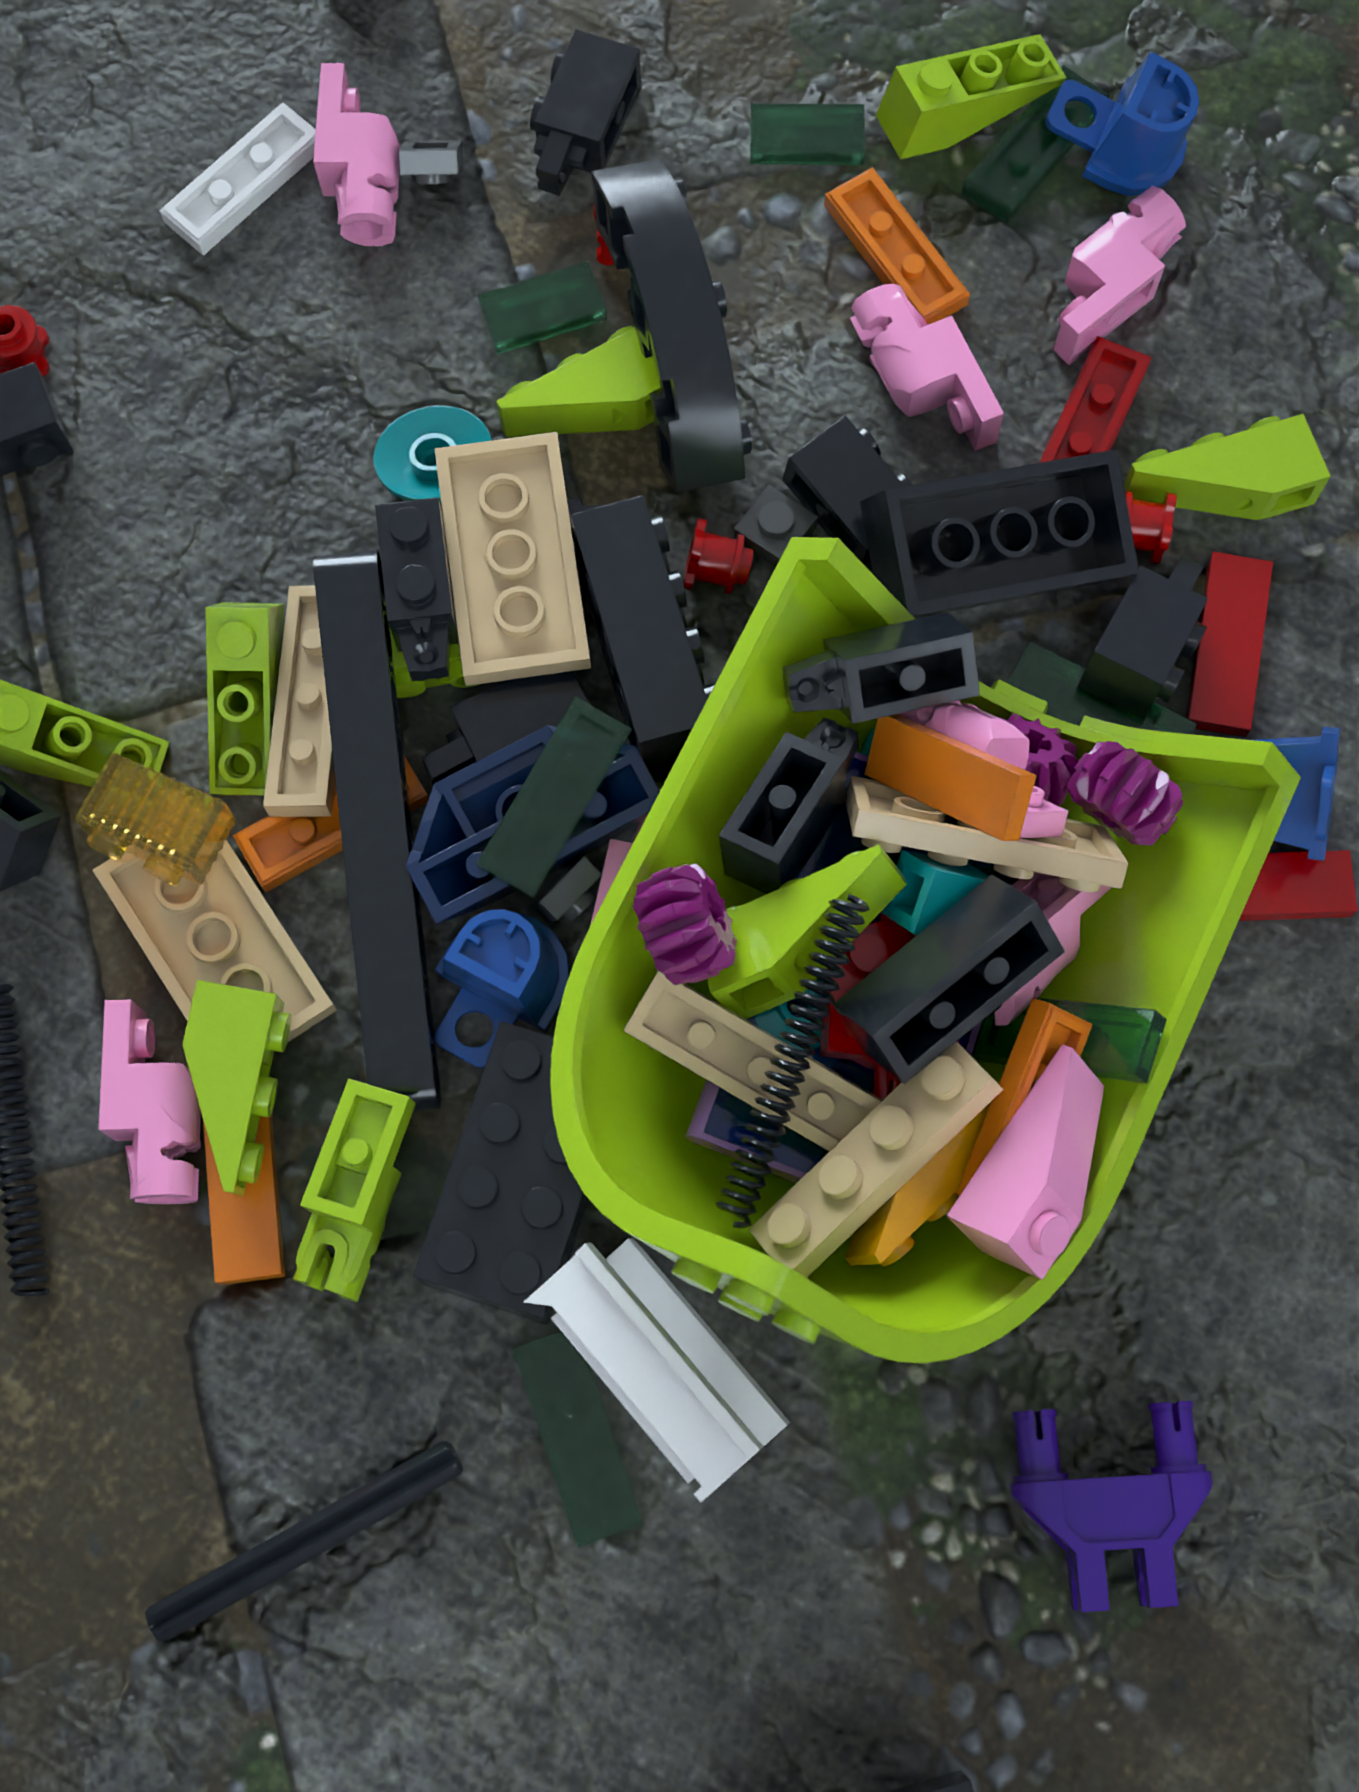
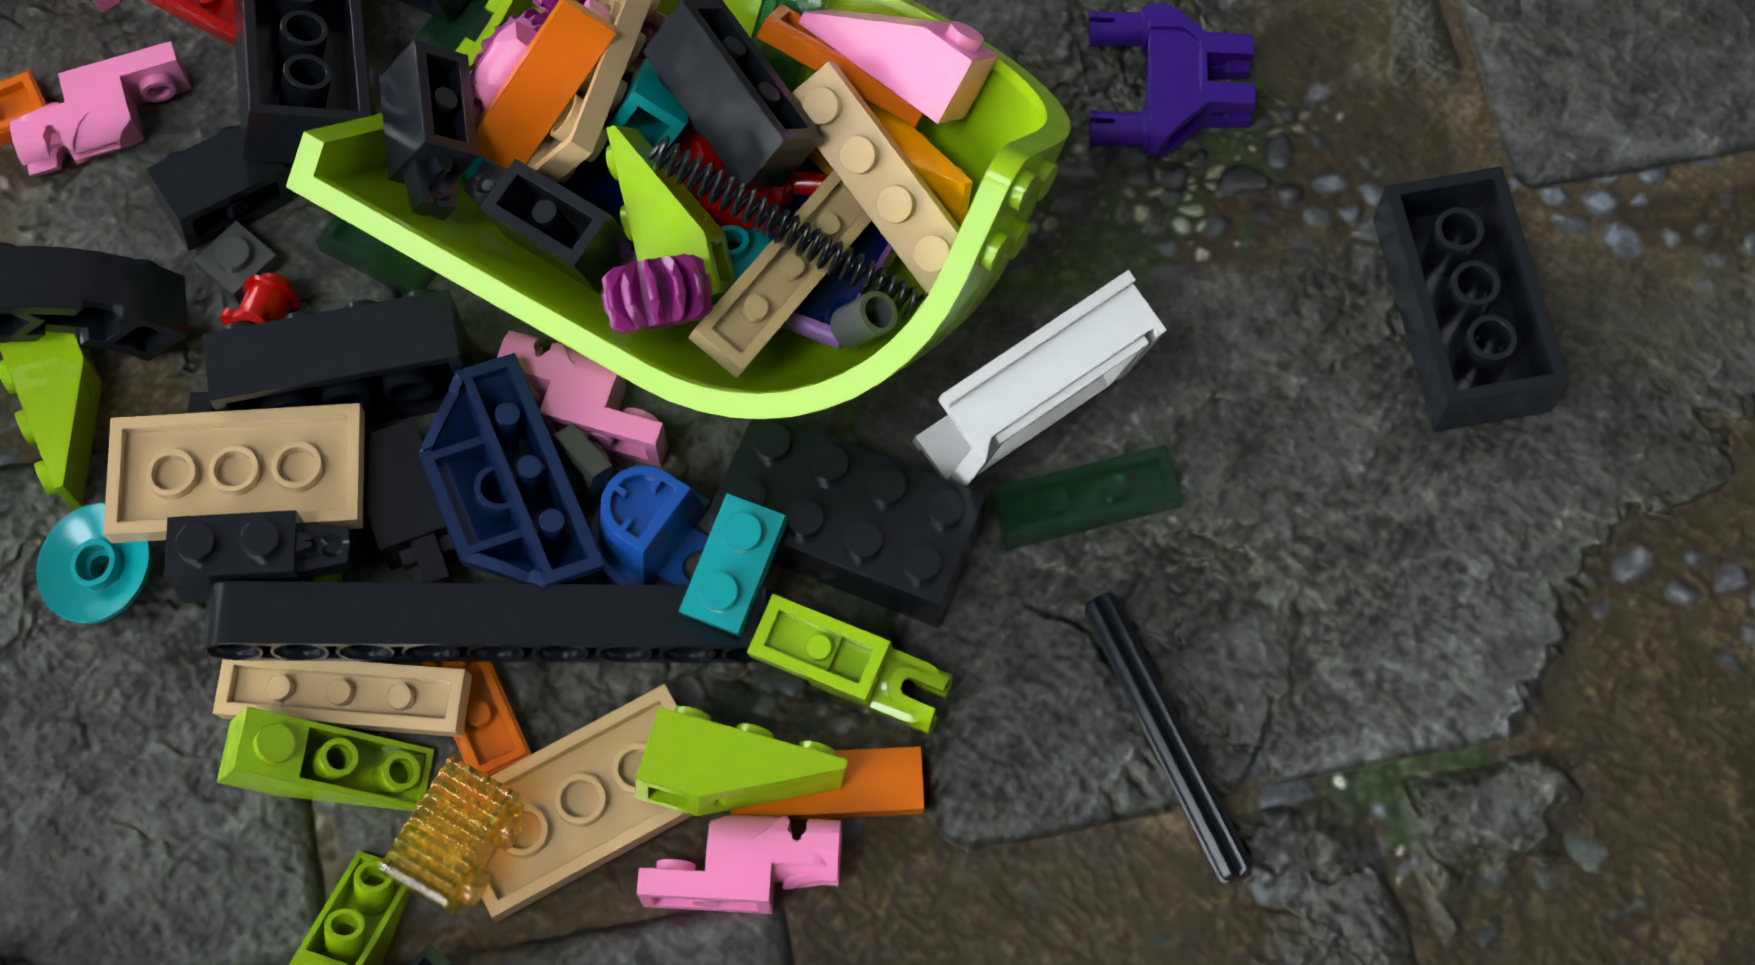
camera: 85 degrees left, 5 degrees down
(439, 1053) = (733, 565): none -> teal plate
(554, 797) = (497, 441): clear green tile -> none
(701, 1174) = (864, 319): none -> dark grey hinge

